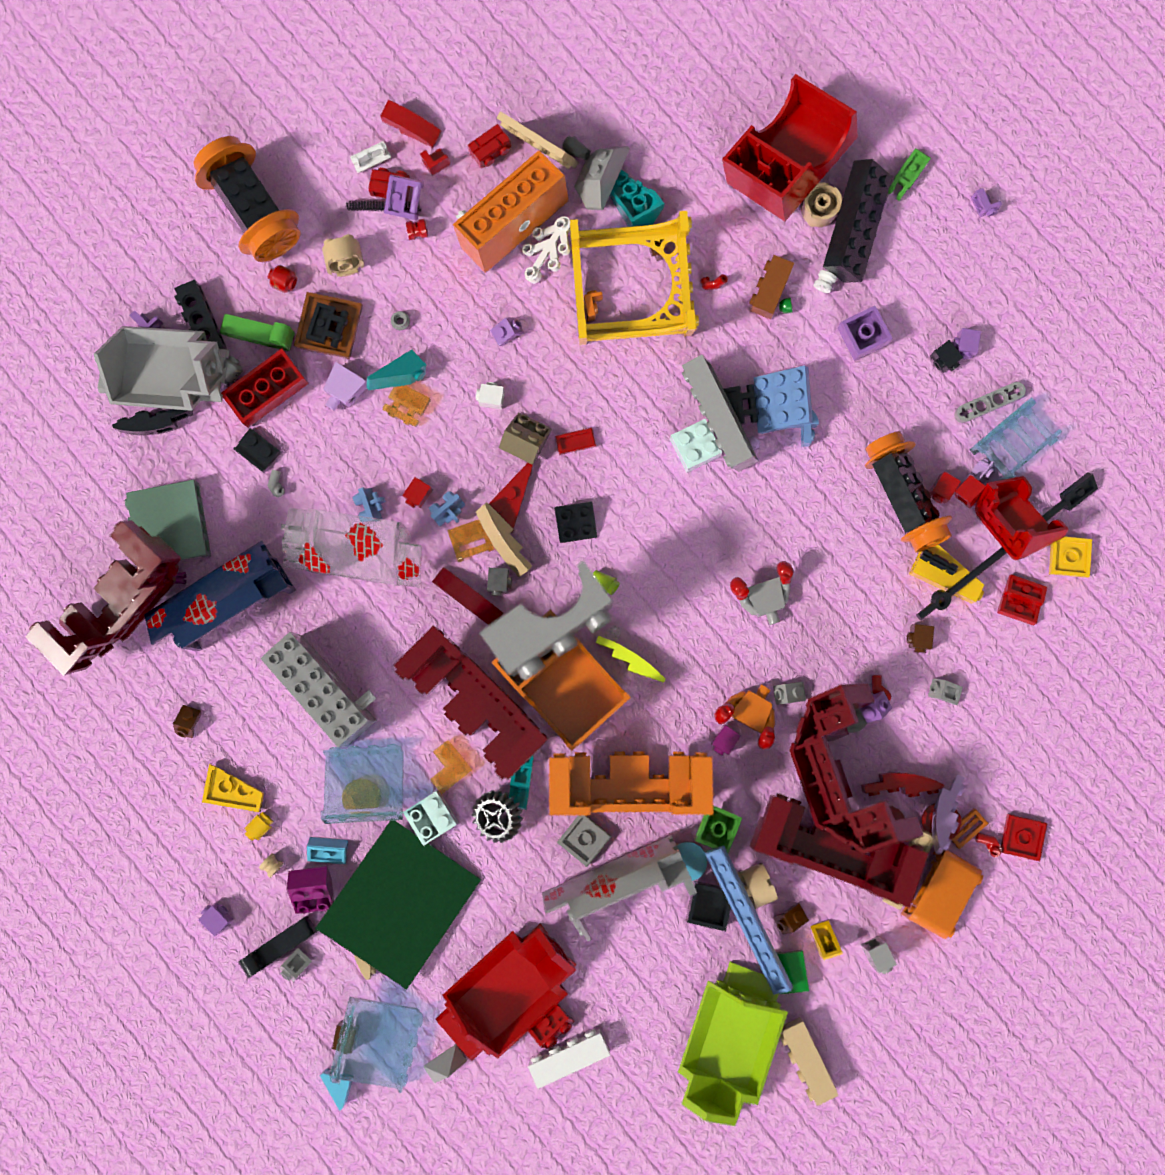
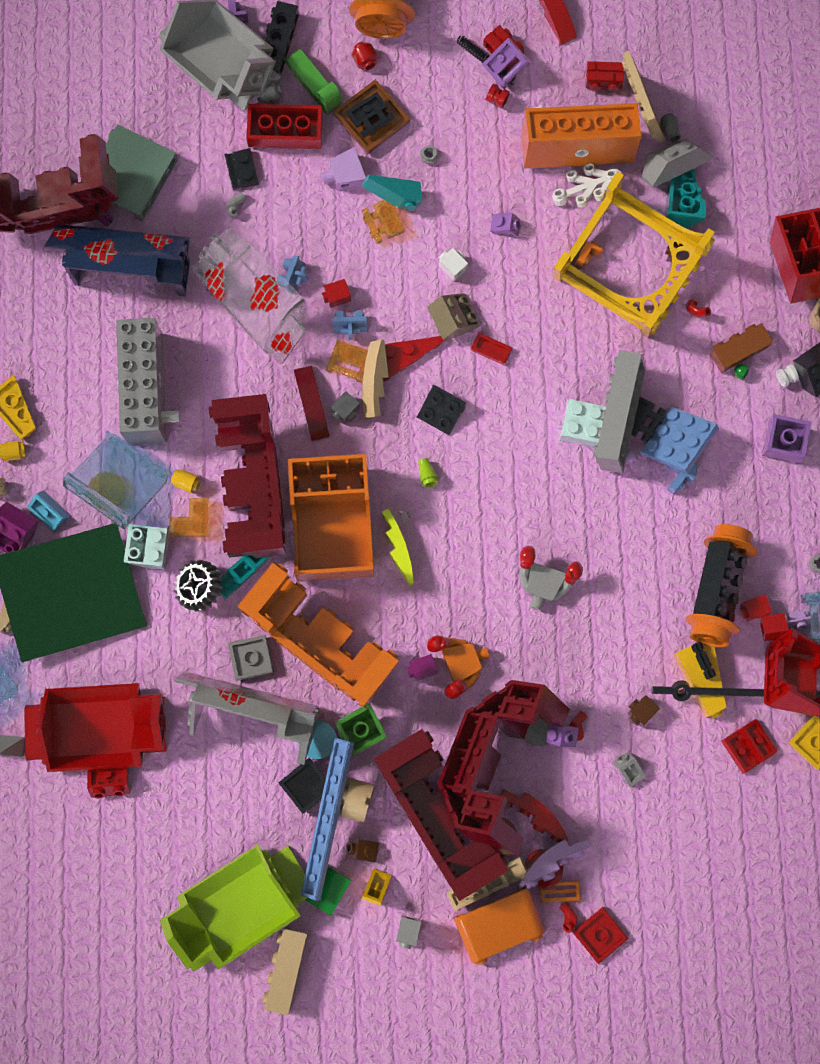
camera: 30 degrees right, 5 degrees down
(147, 424) = (174, 85): black slope -> none
(186, 721) = (22, 329): reddish brown bracket -> none
(342, 255) = (424, 72): tan brick -> none
(370, 157) = (506, 16): white hinge -> none
(418, 740) = (185, 480): none -> yellow brick
(435, 161) = (553, 56): red panel -> none
(524, 638) = (327, 457): light grey piece -> none
(568, 1058) = (102, 817): white brick -> none
(789, 693) = (502, 671): light grey bracket -> none

